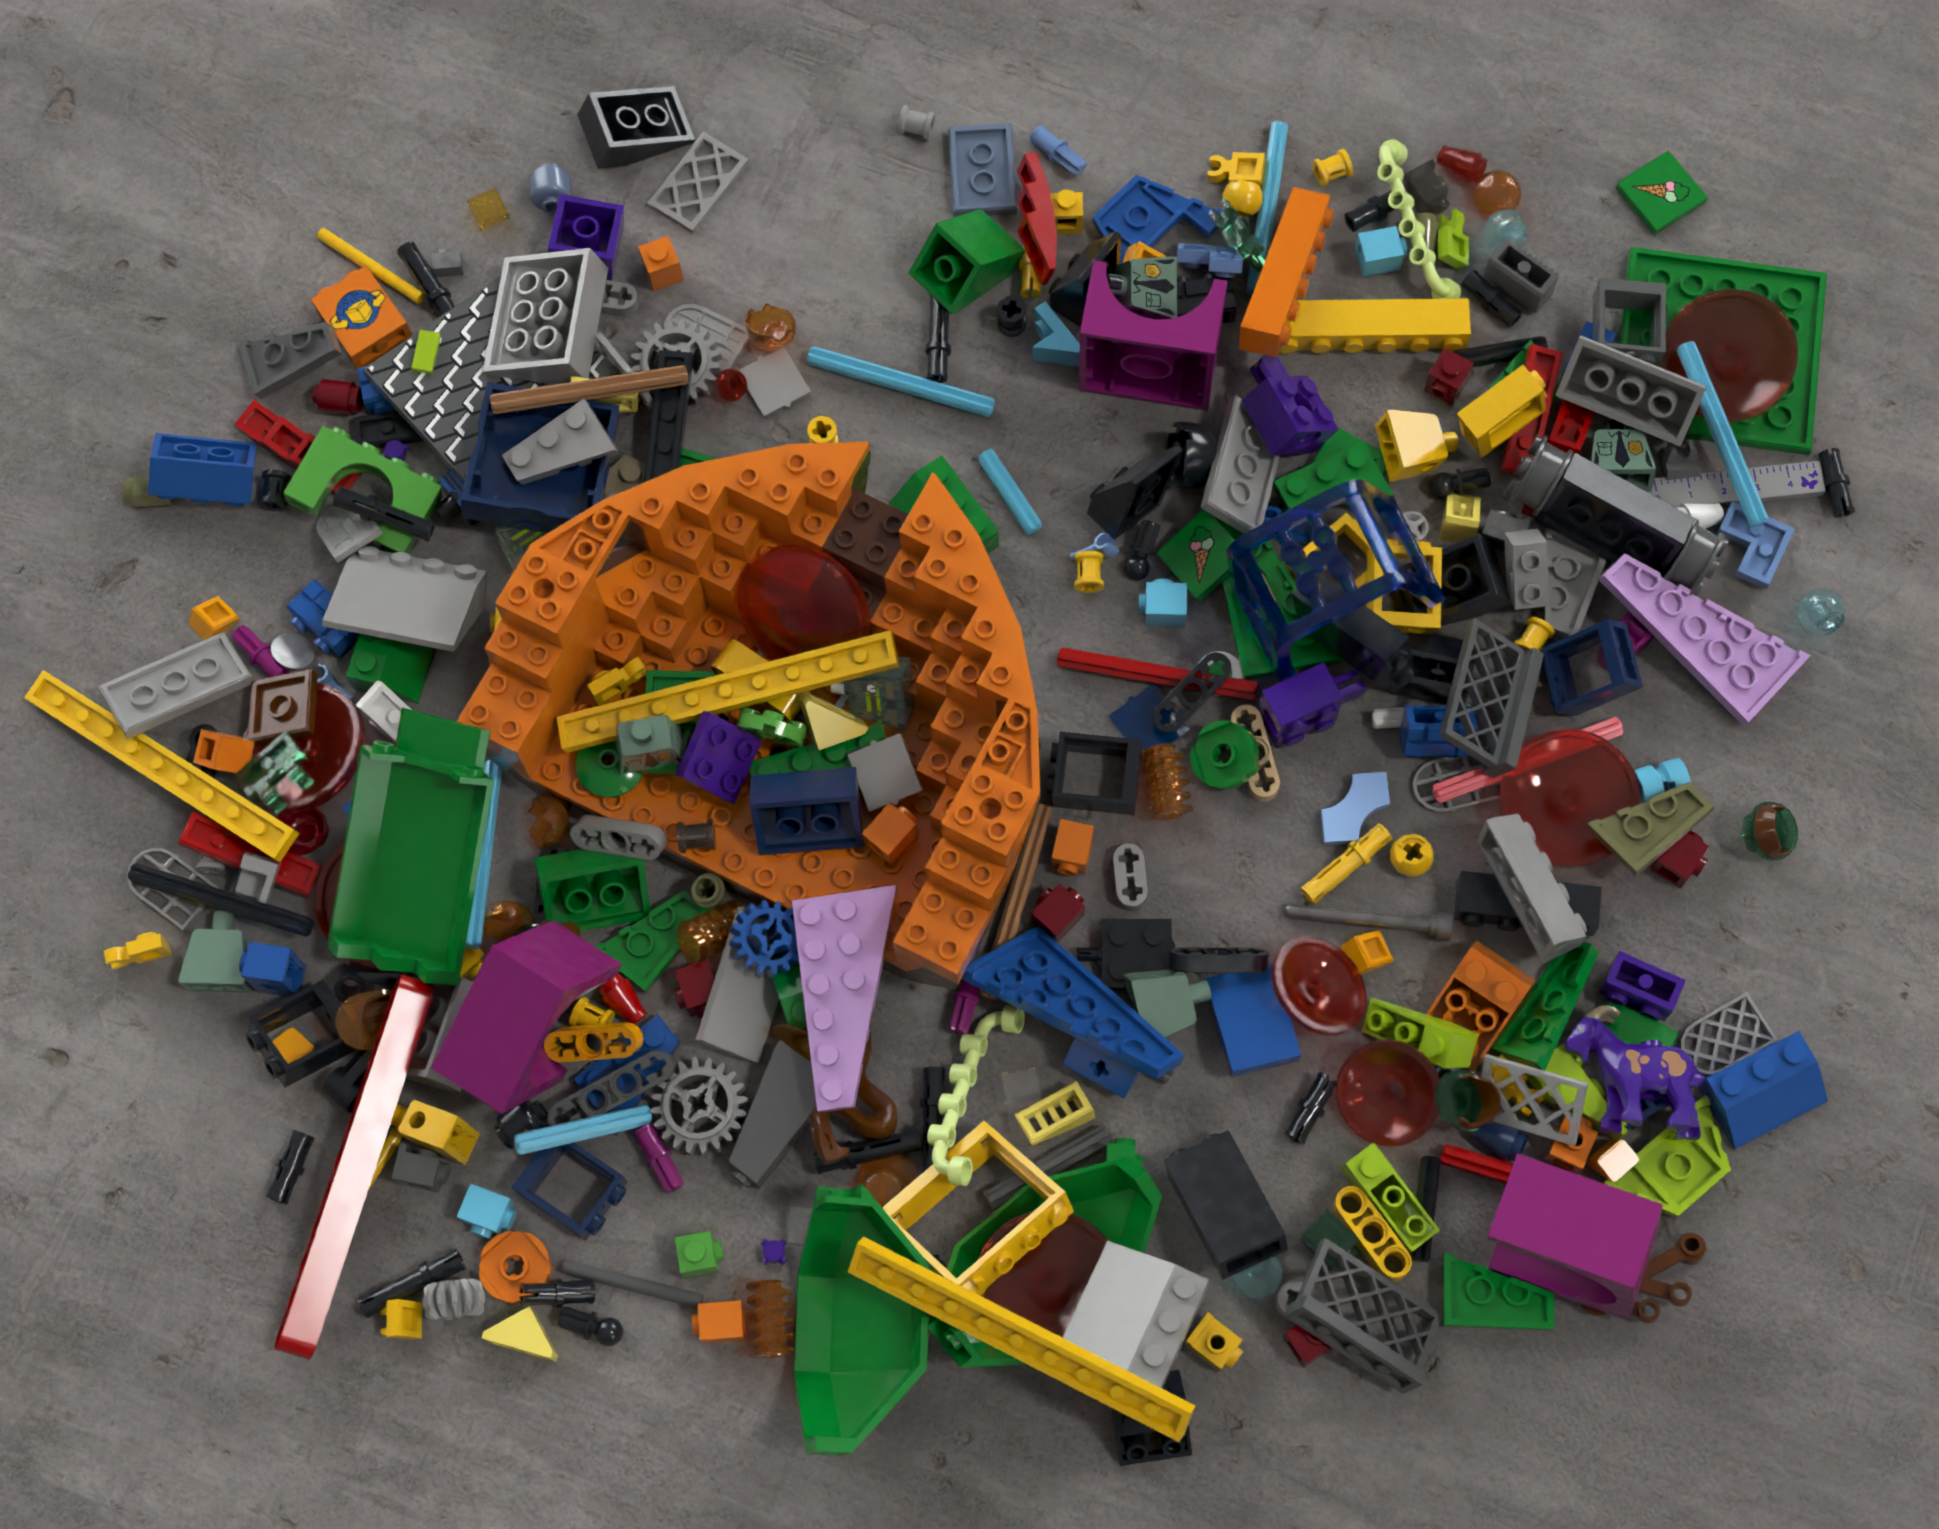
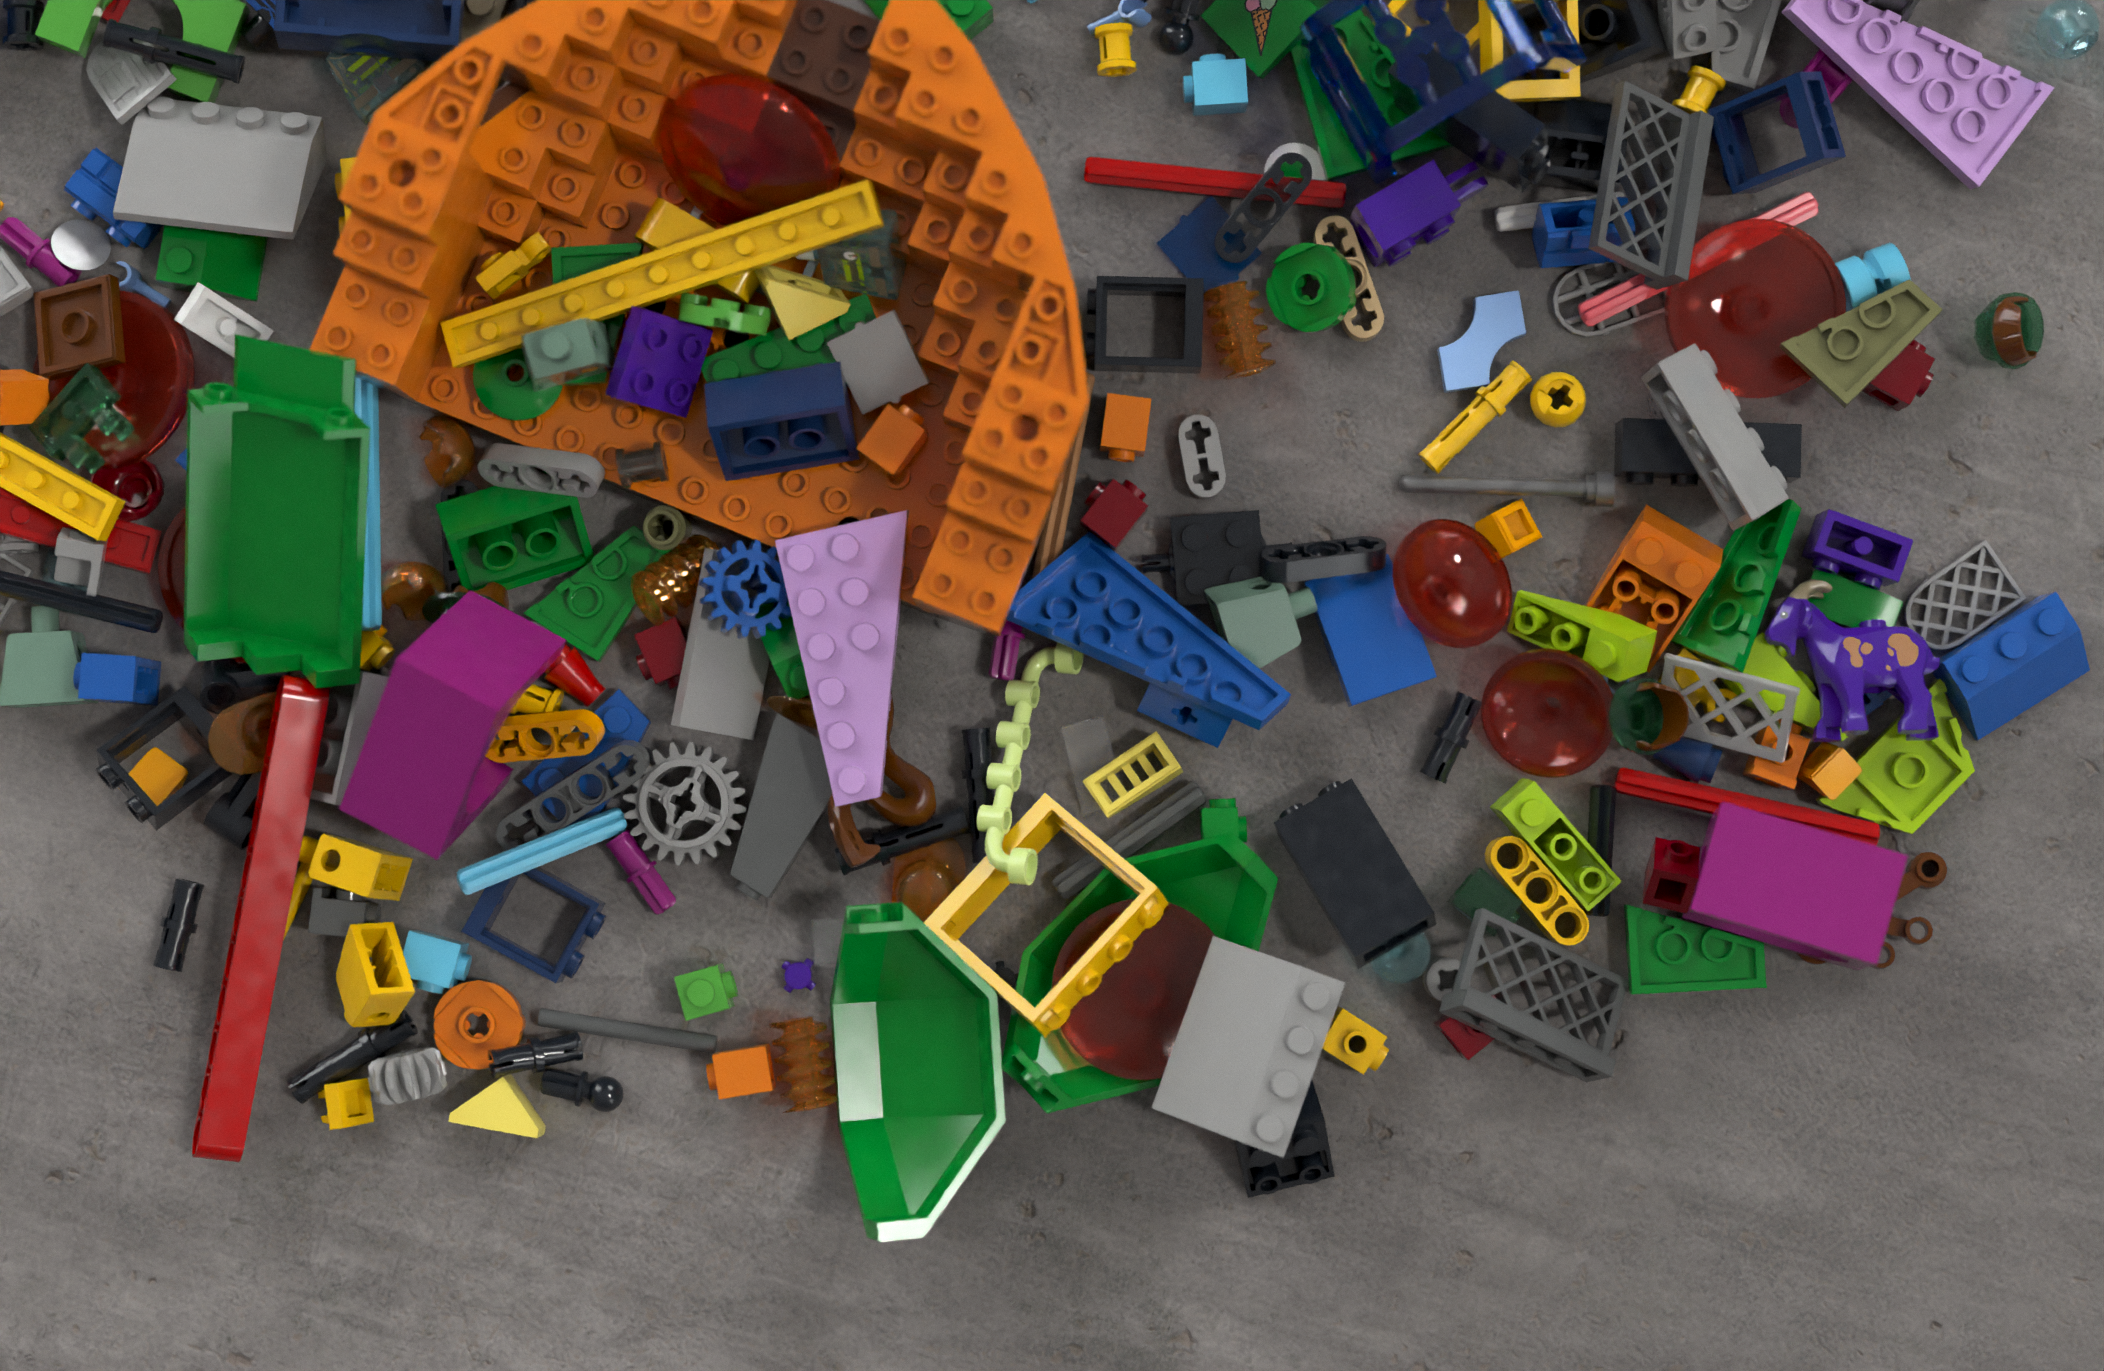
camera: 10 degrees left, 15 degrees up
(437, 1216) = (378, 989): none -> yellow torso
(520, 1119) = (469, 848): black head -> none
(1022, 1339) = (1119, 1081): yellow plate -> none
(1476, 1230) = (1671, 875): none -> dark red brick

